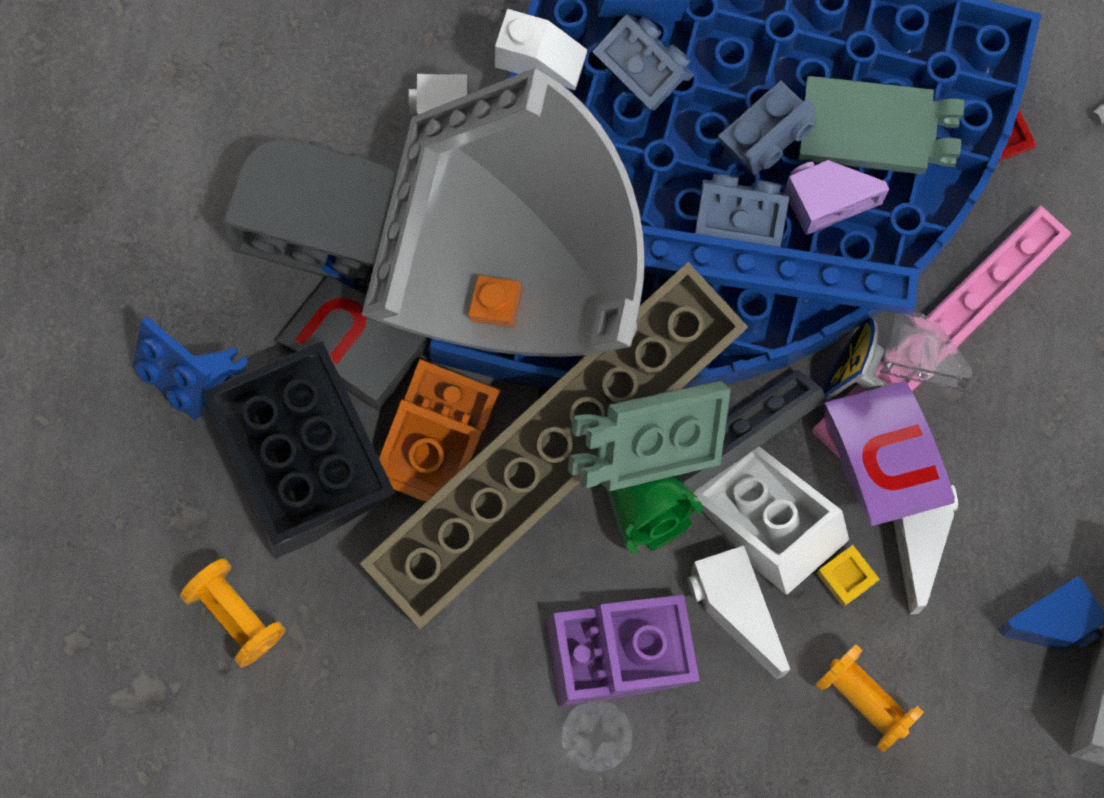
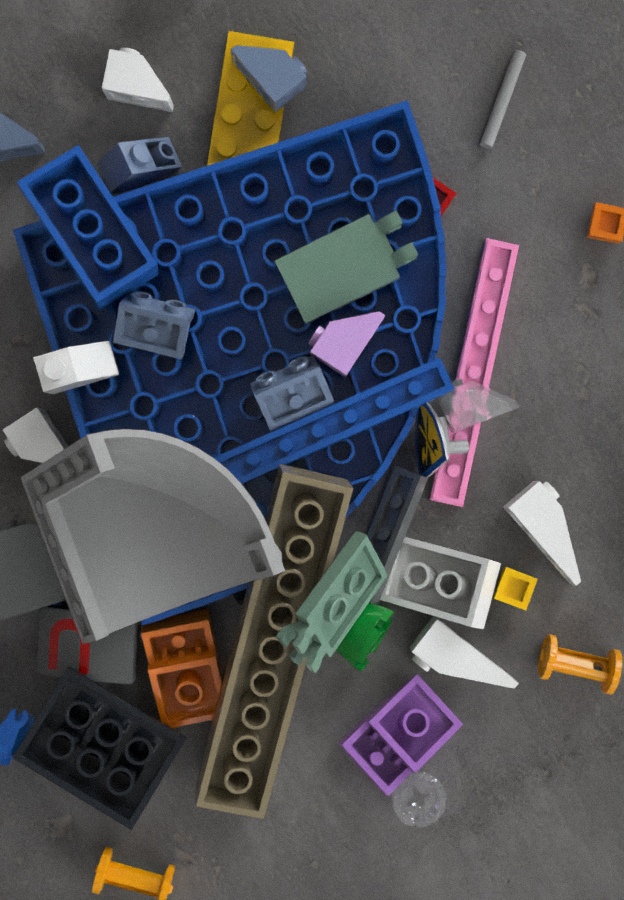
camera: 25 degrees left, 15 degrees up
(495, 301) = (166, 571): orange plate -> none
(768, 128) = (272, 319): sand blue bracket -> none
(888, 453) = (495, 496): medium lavender slope -> none

